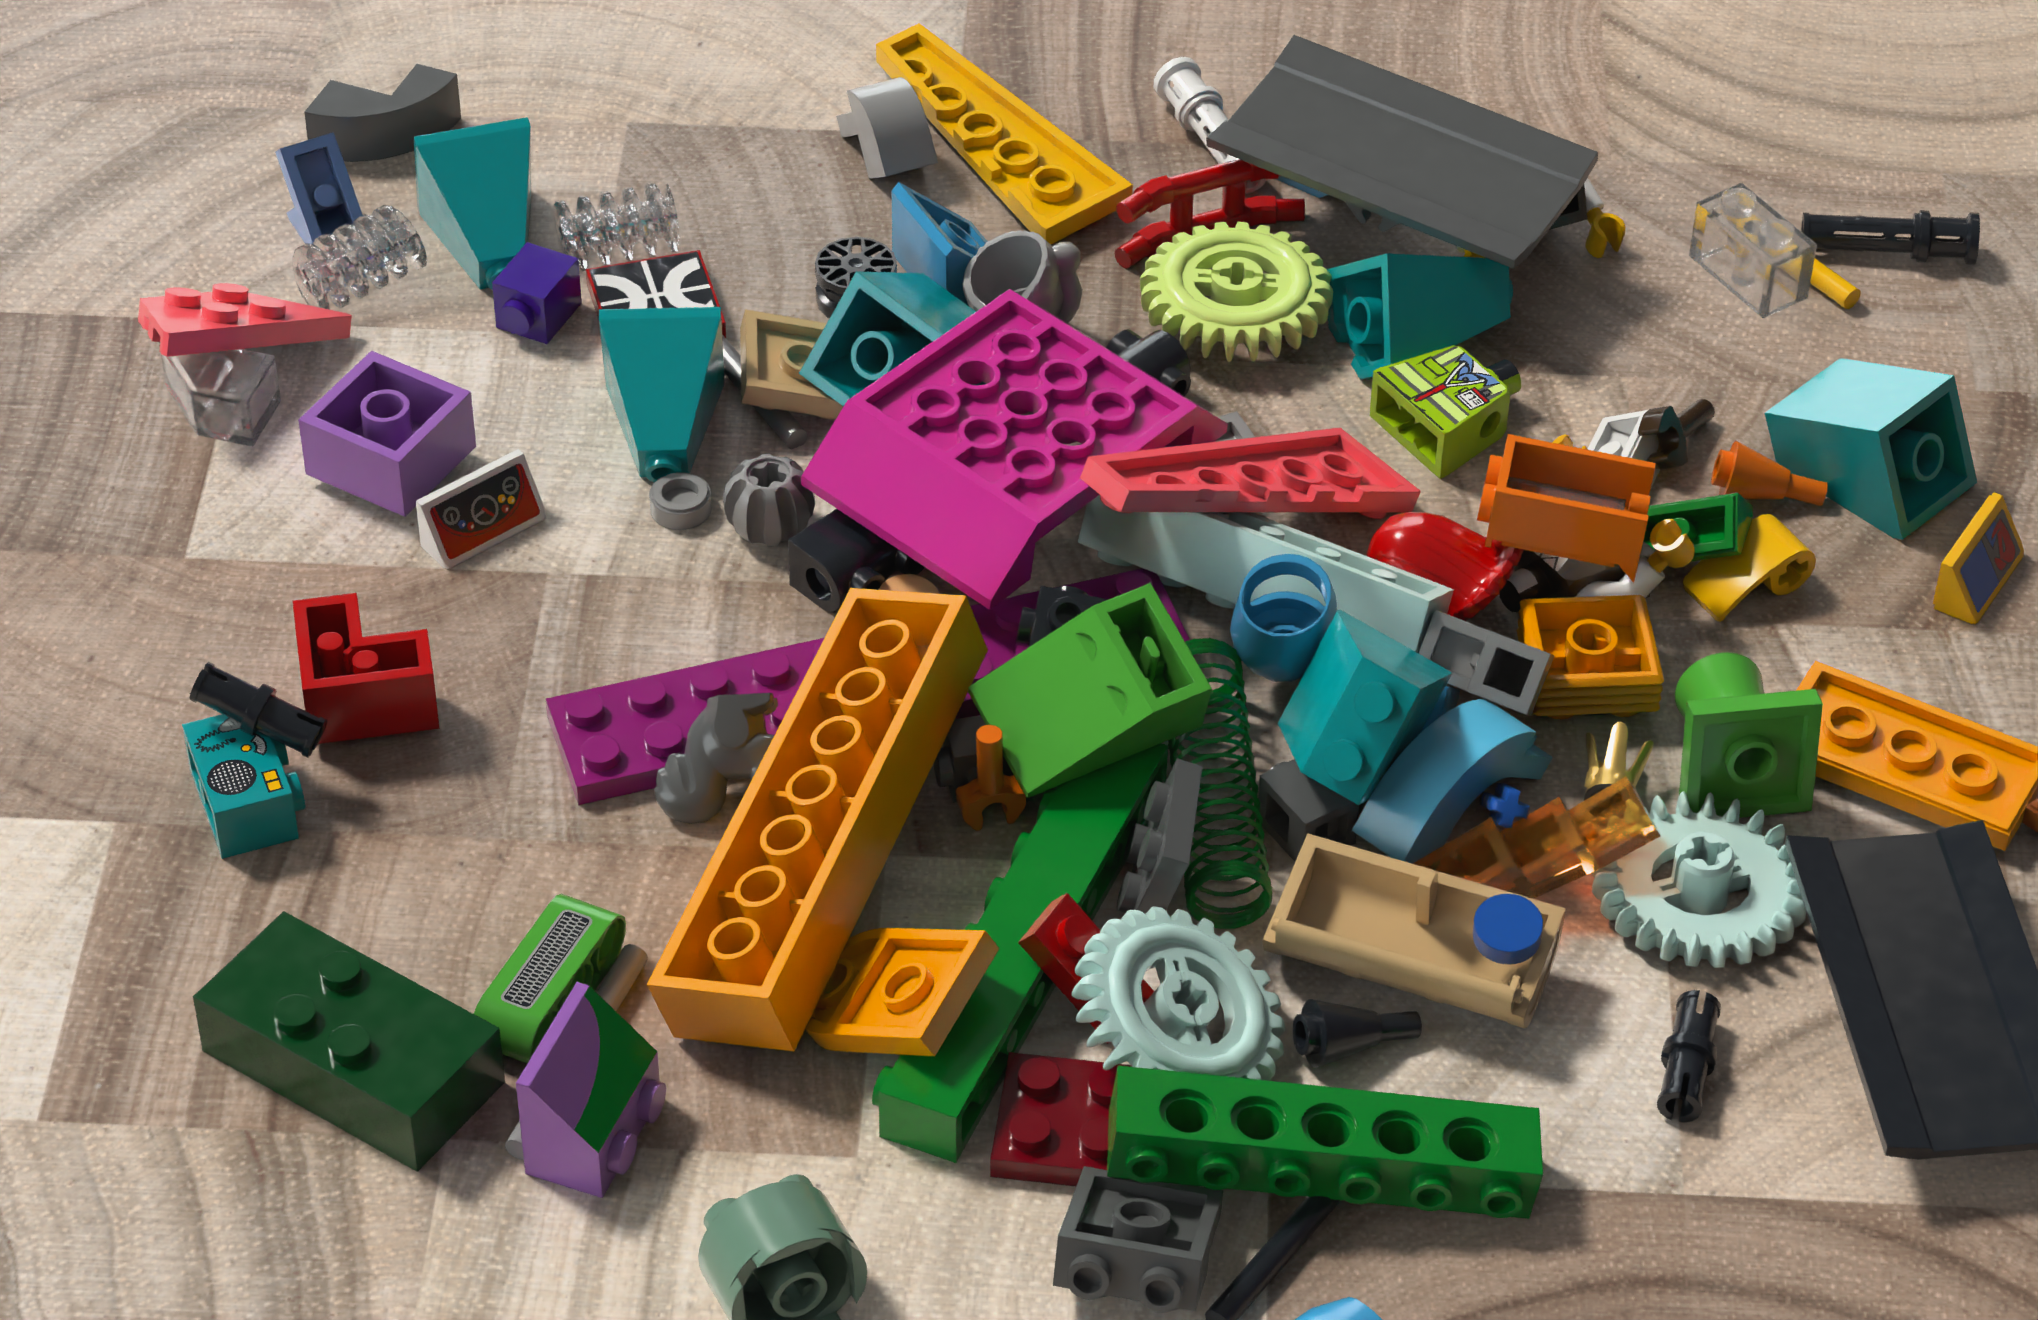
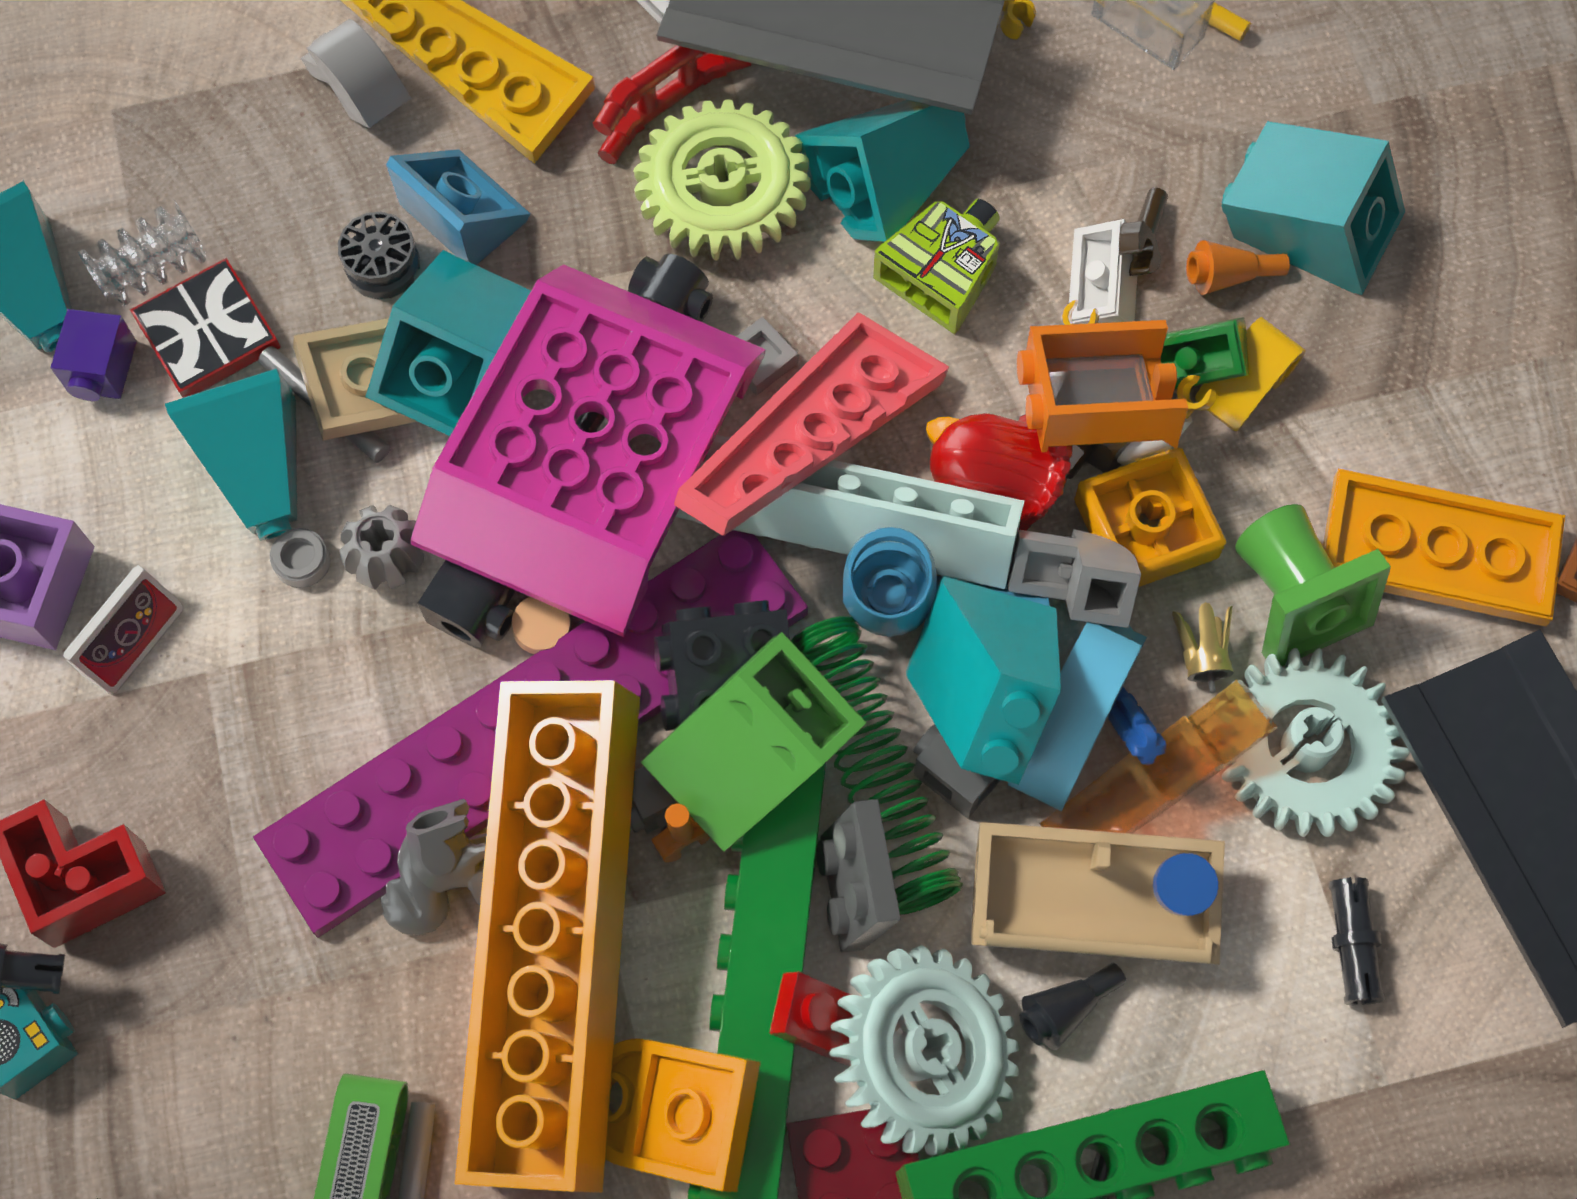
camera: 15 degrees left, 25 degrees up
(1028, 267) = (533, 233): light grey piece -> none
(1979, 563) = (1437, 312): slope -> none

